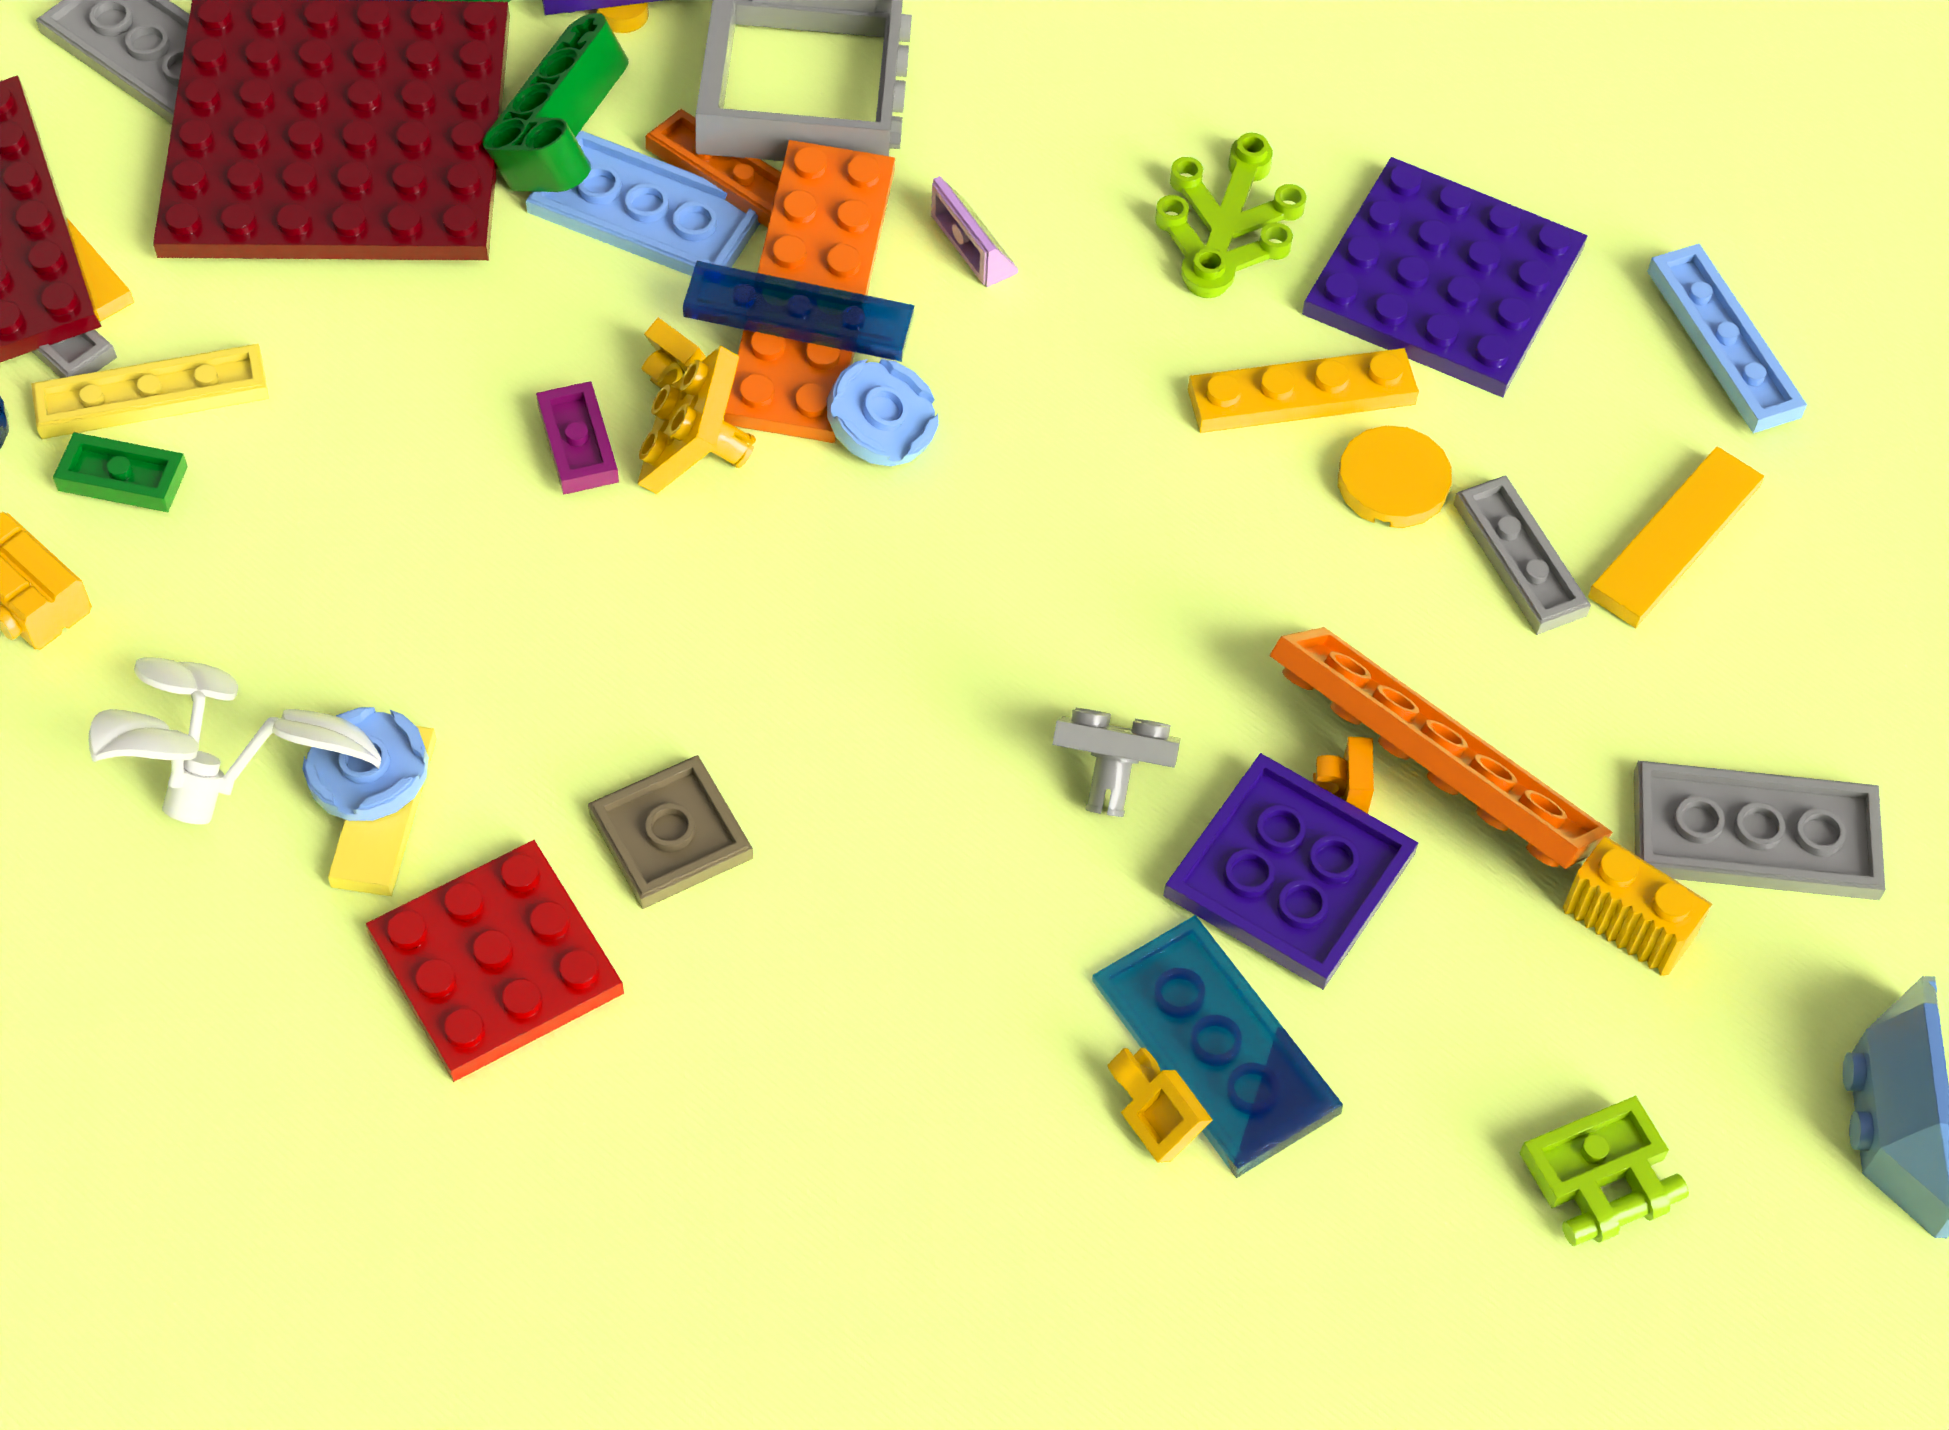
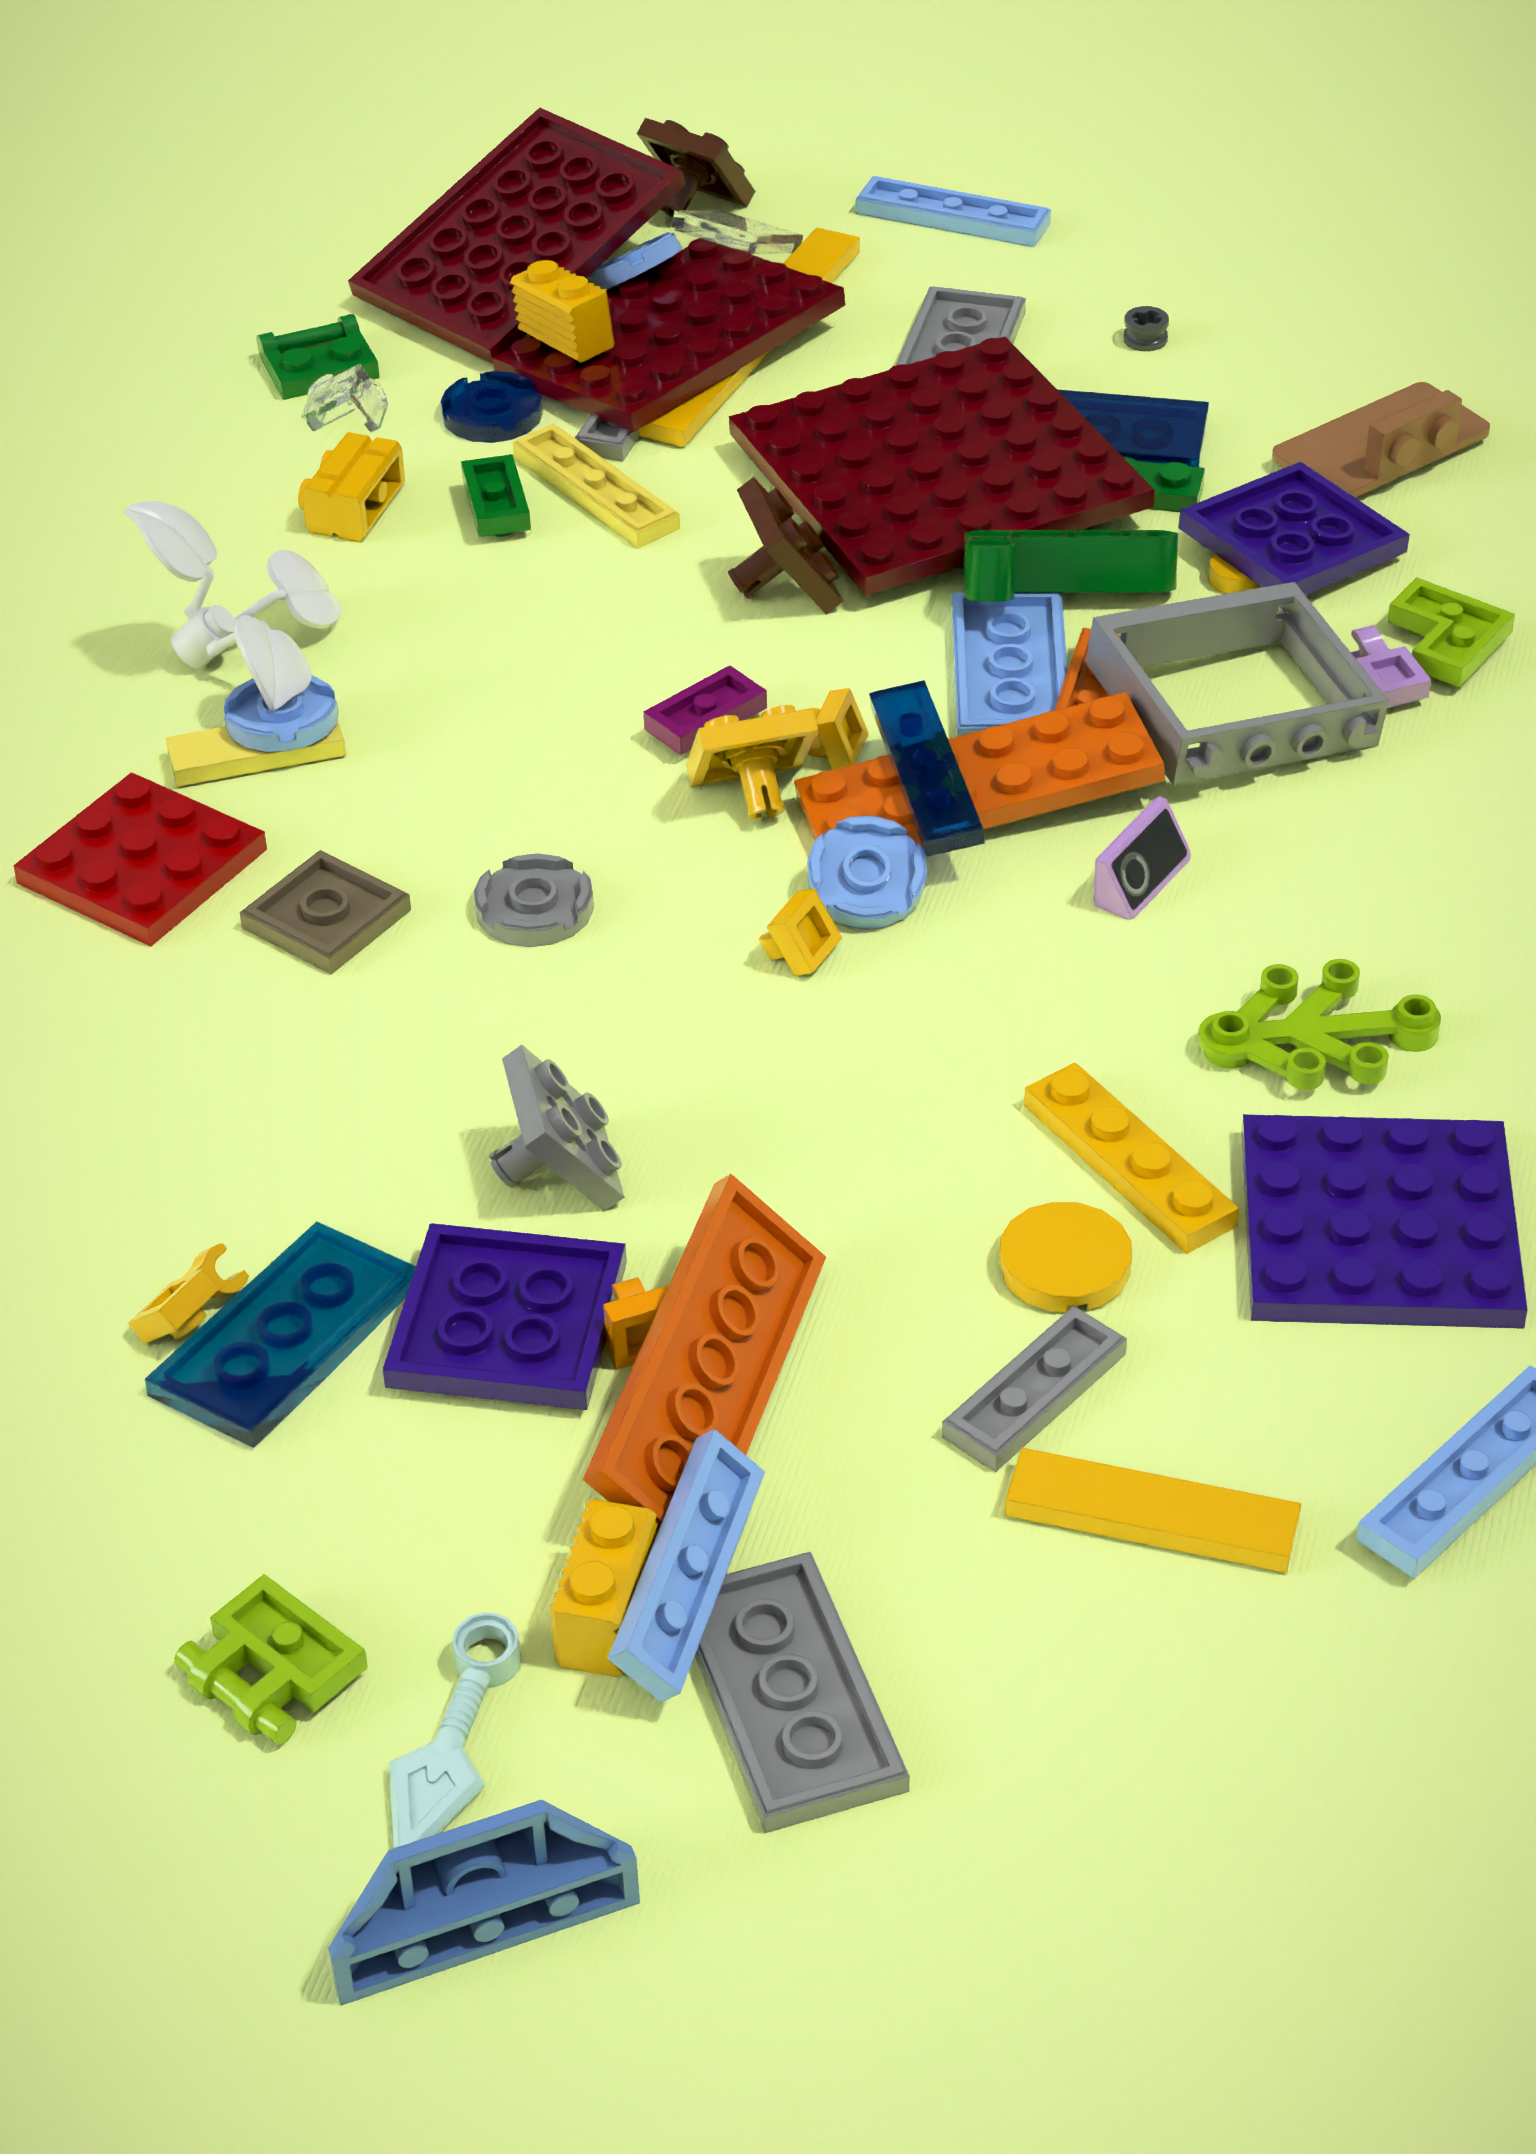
camera: 70 degrees right, 15 degrees down
(406, 285) = (784, 548): none -> reddish brown plate
(753, 665) = (533, 900): none -> light grey tile
(934, 487) = (801, 933): none -> yellow tile
(1629, 824) = (686, 1566): none -> light blue plate
(1757, 1095) = (439, 1778): none -> light aqua piece

